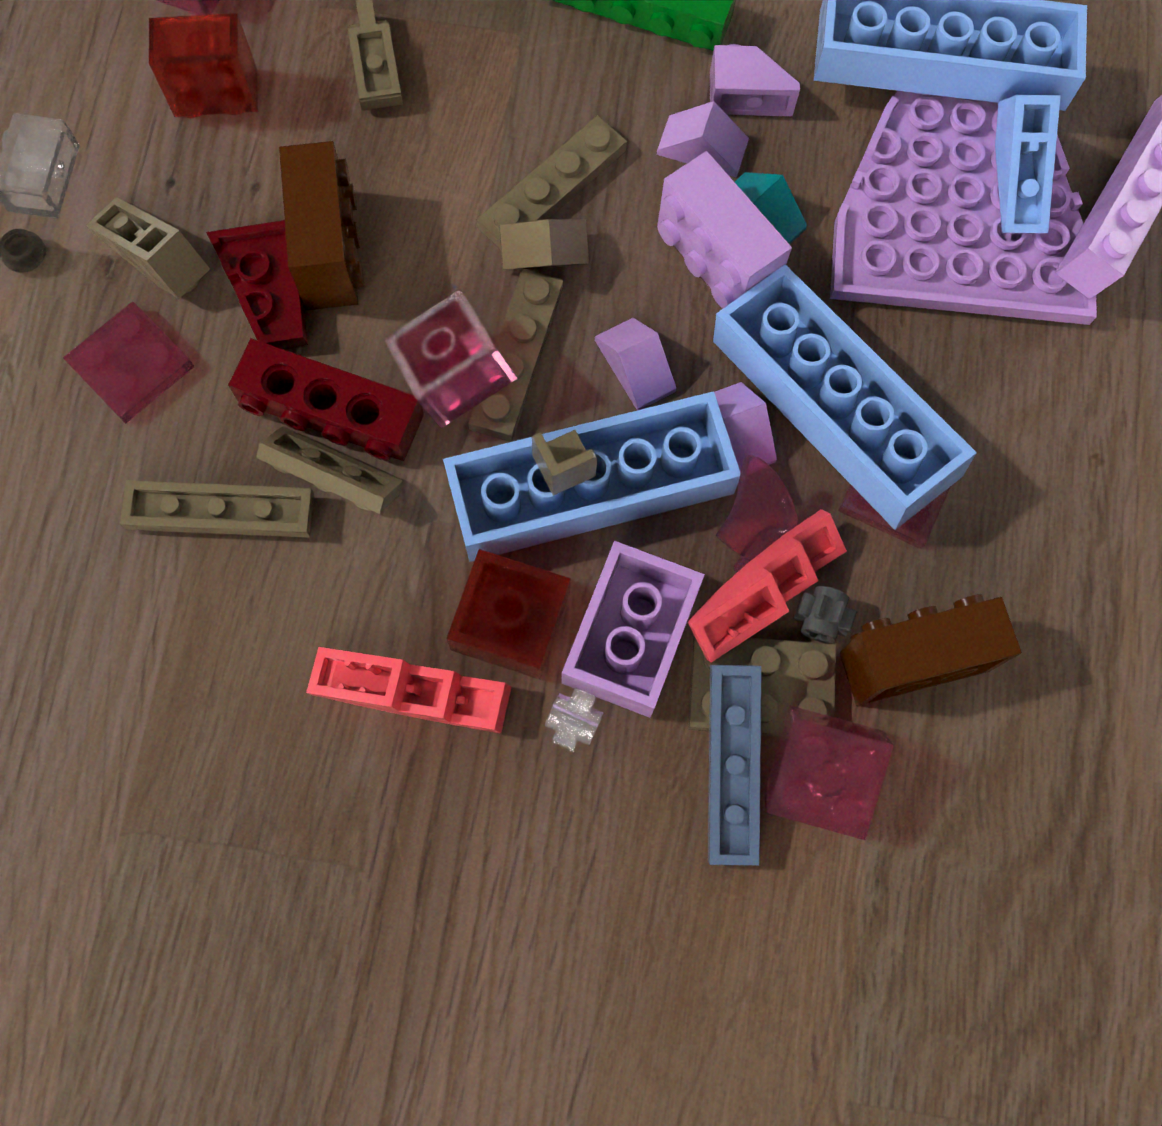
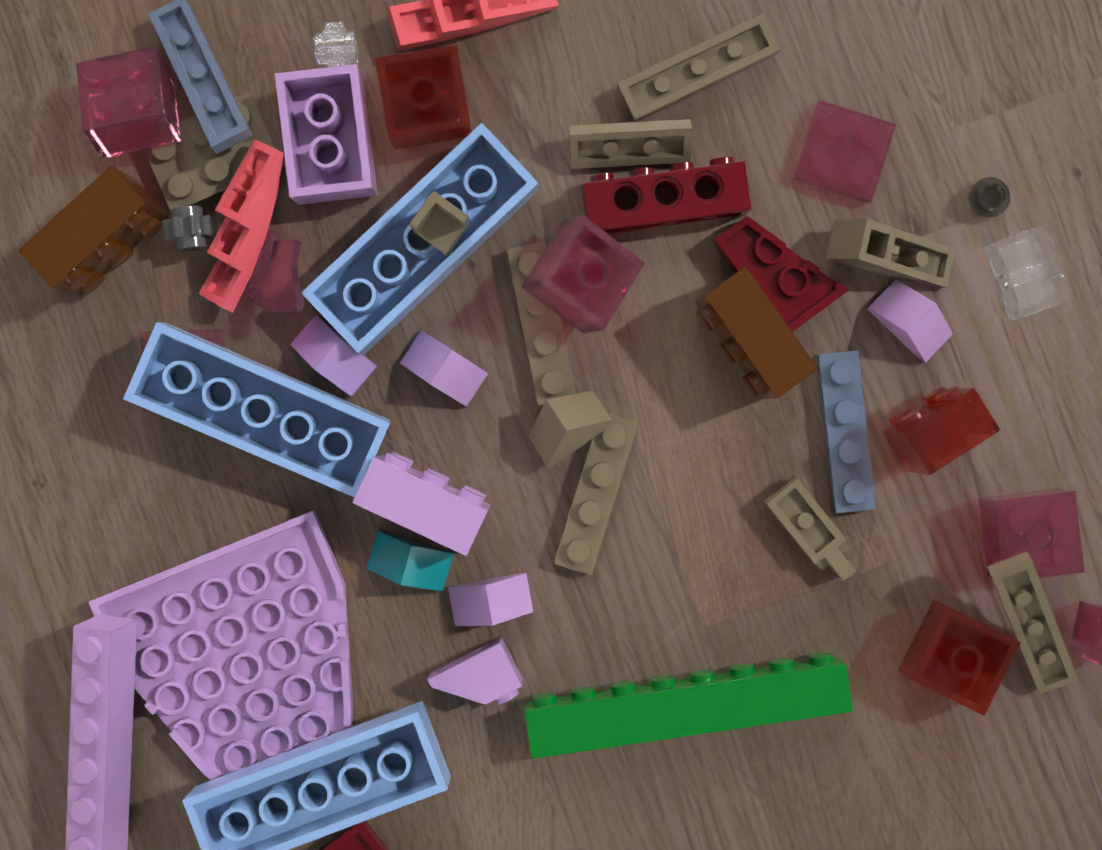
camera: 155 degrees right, 15 degrees up
(168, 186) = (911, 319): none -> lavender slope
(290, 121) = (845, 431): none -> sand blue plate
(1026, 161) = (204, 709): light blue slope -> none

